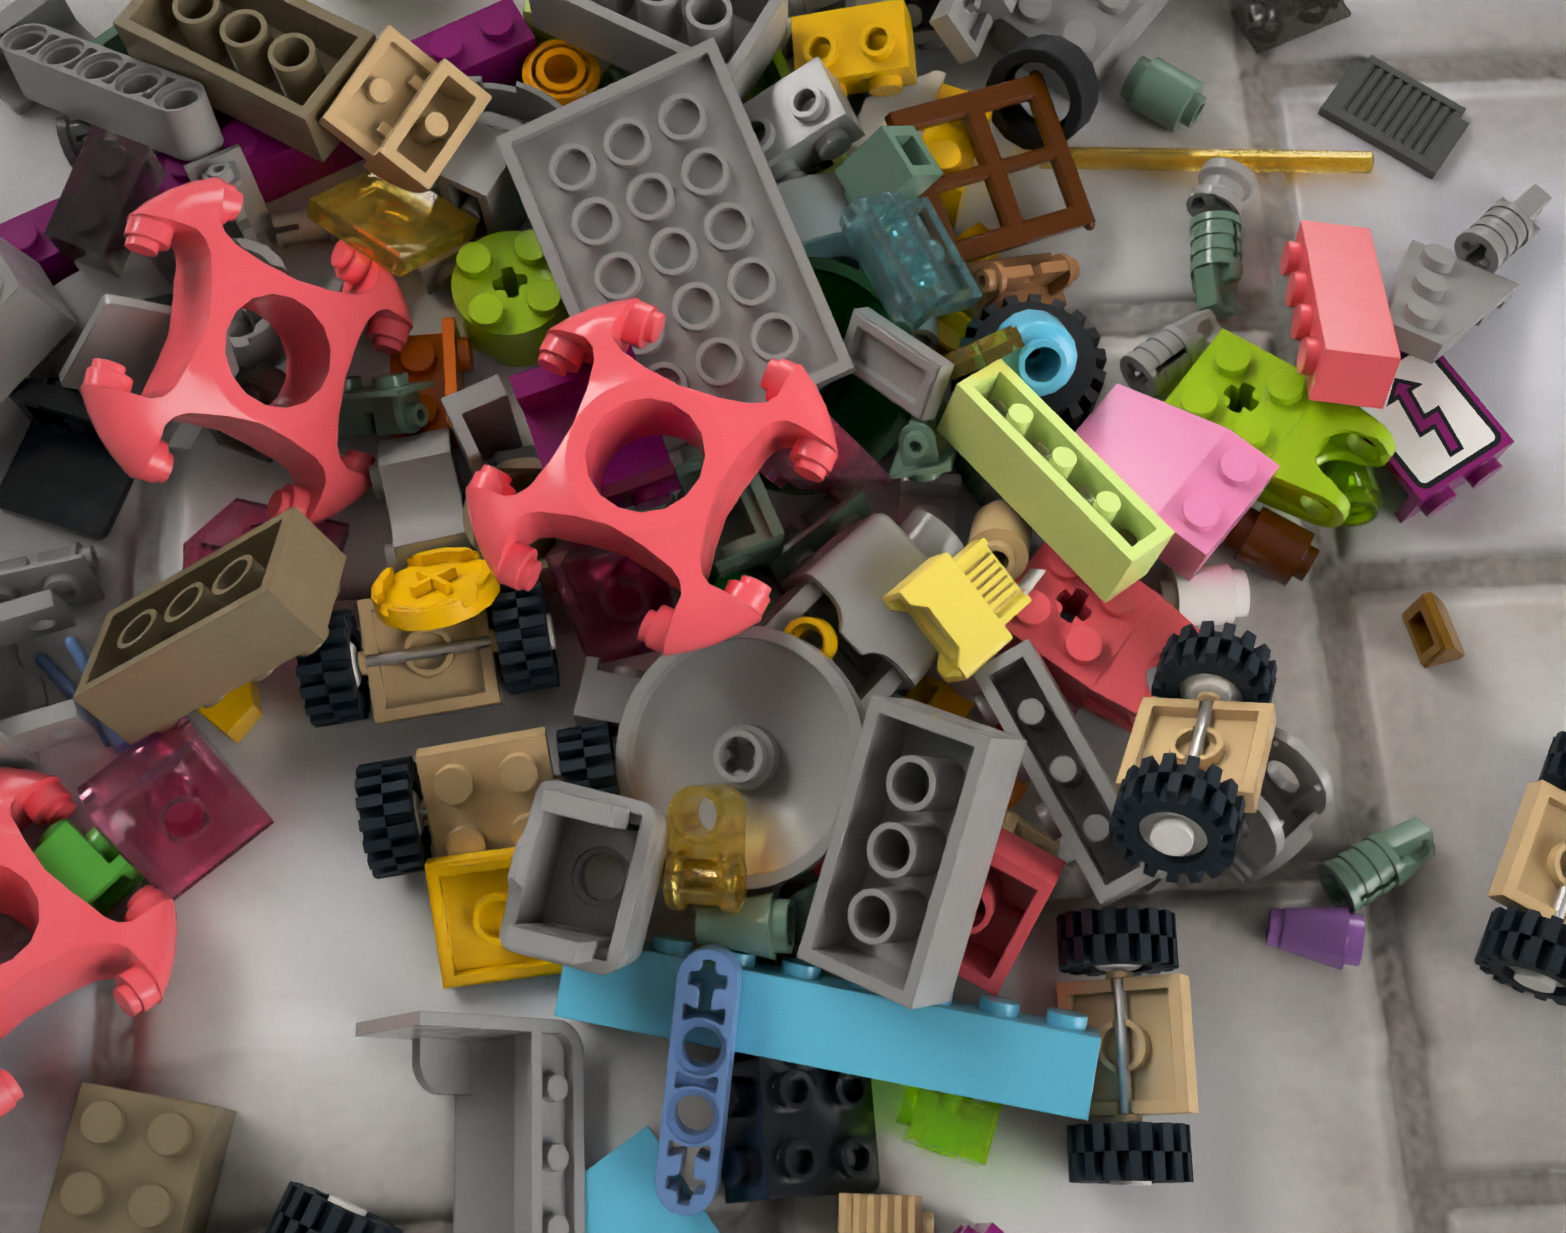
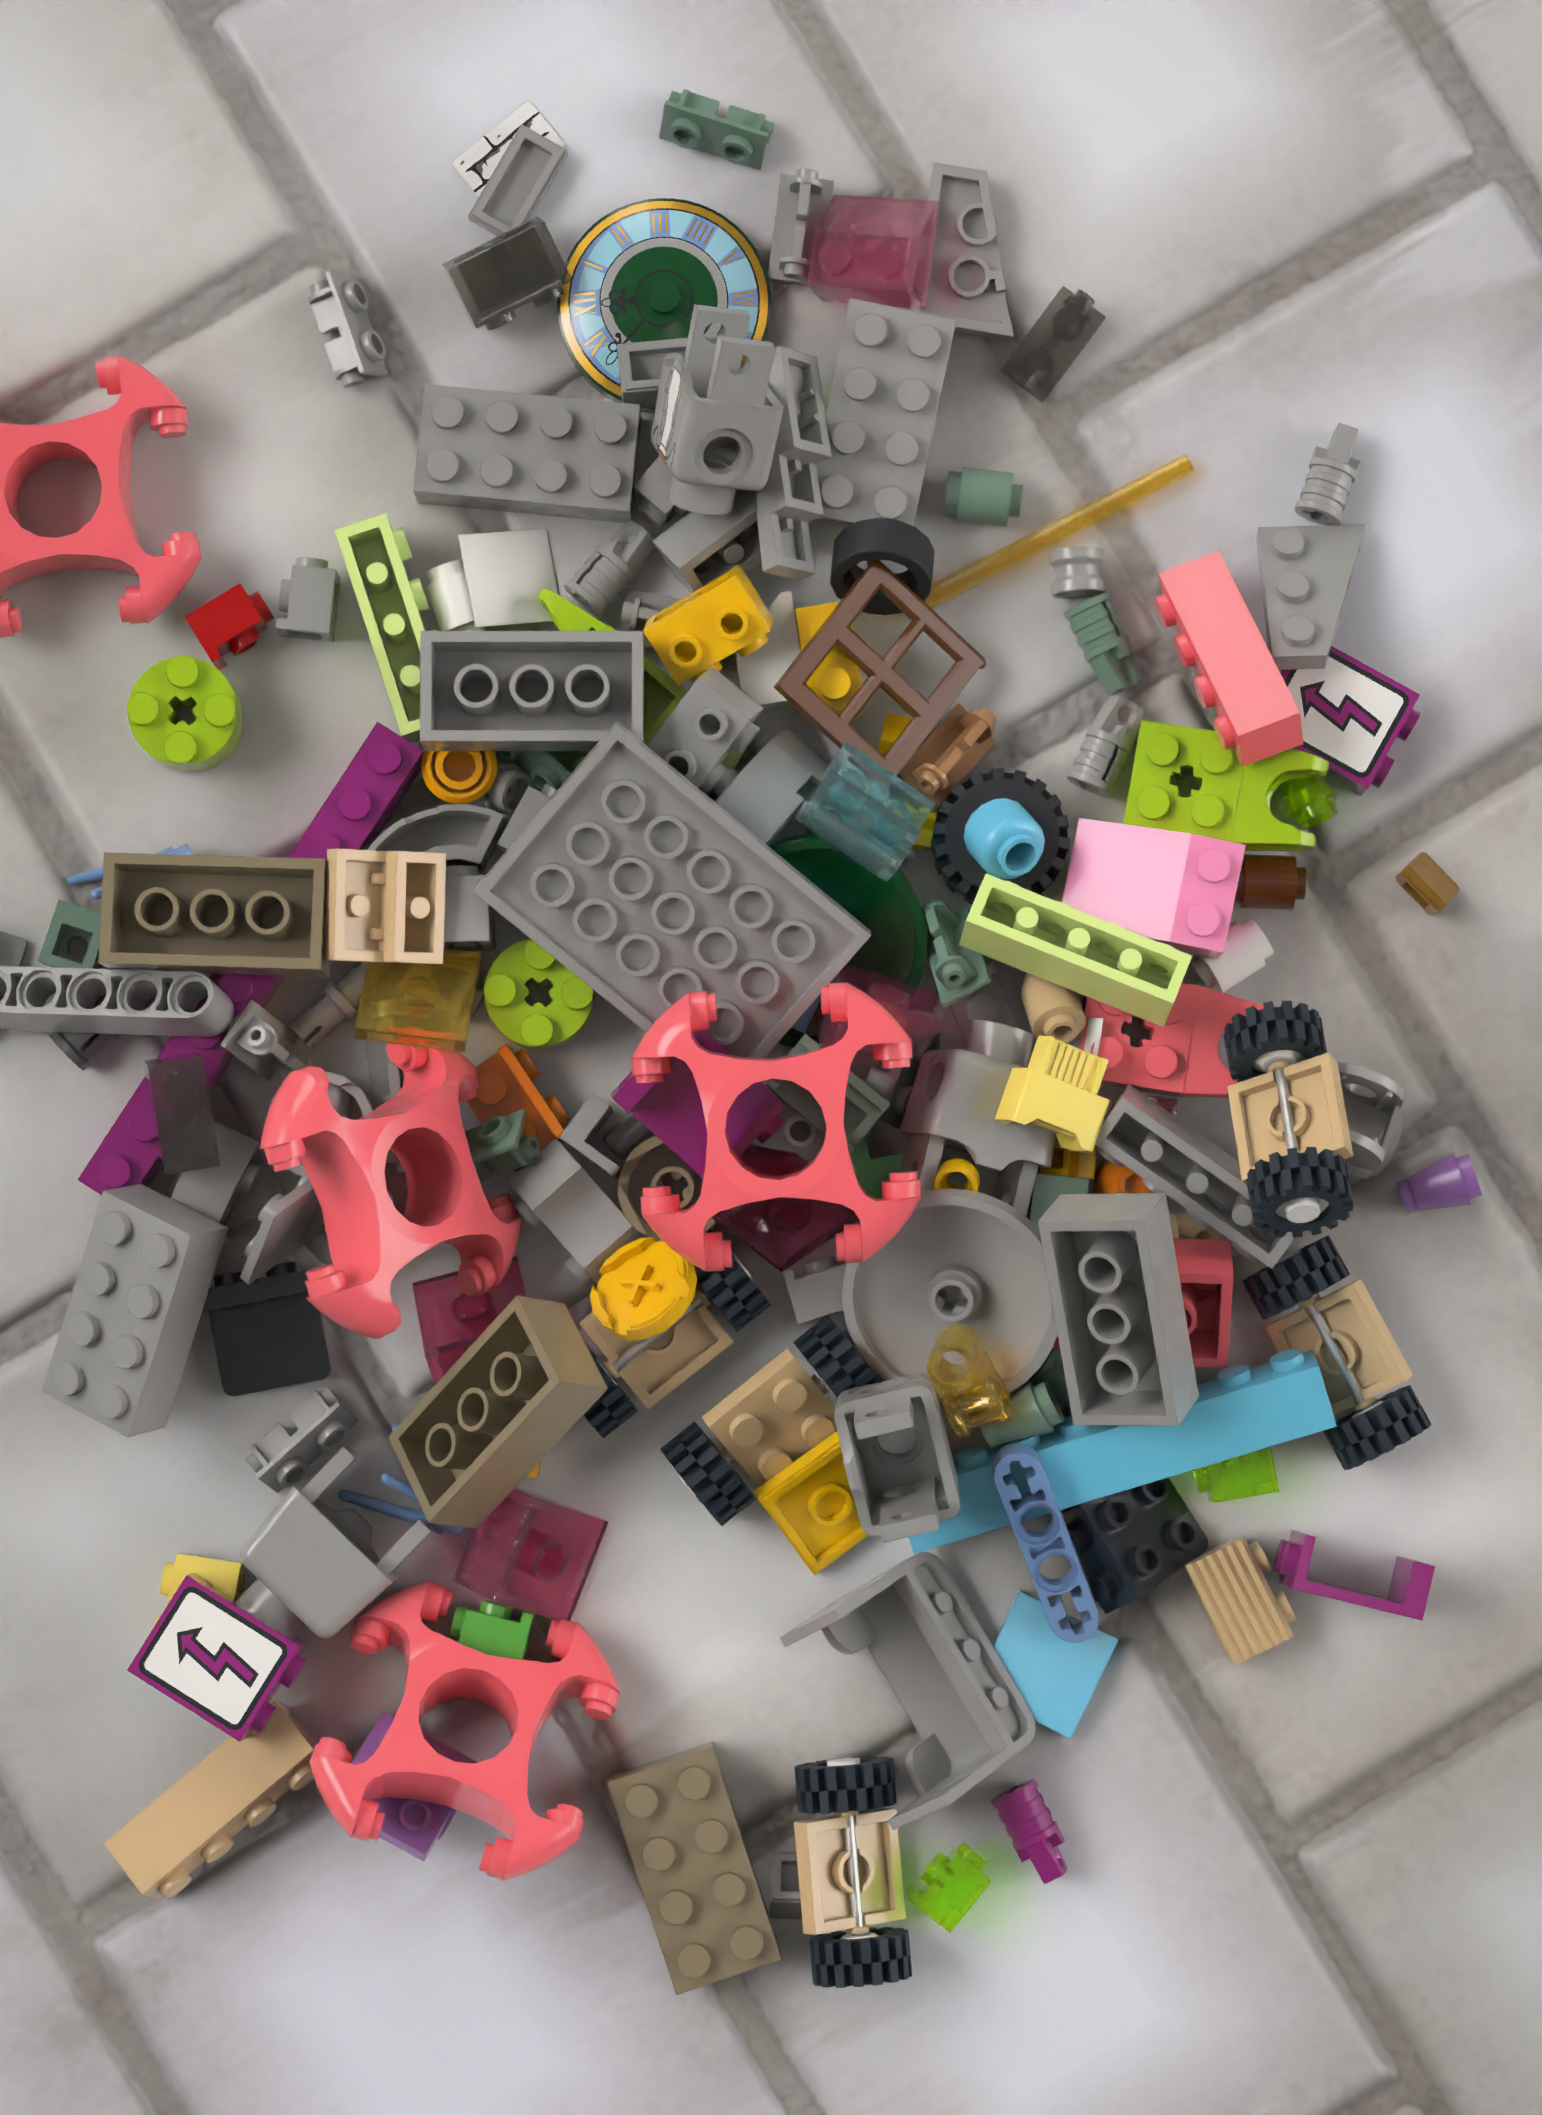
camera: 30 degrees left, 15 degrees up
(889, 162) = (806, 742): sand green brick -> none
(897, 364) = (902, 913): light grey tile -> none
(984, 351) = (951, 885): clear yellow tile -> none
(1376, 864) = (1463, 1106): sand green hinge -> none
(1396, 114) = (1190, 398): dark grey window -> none

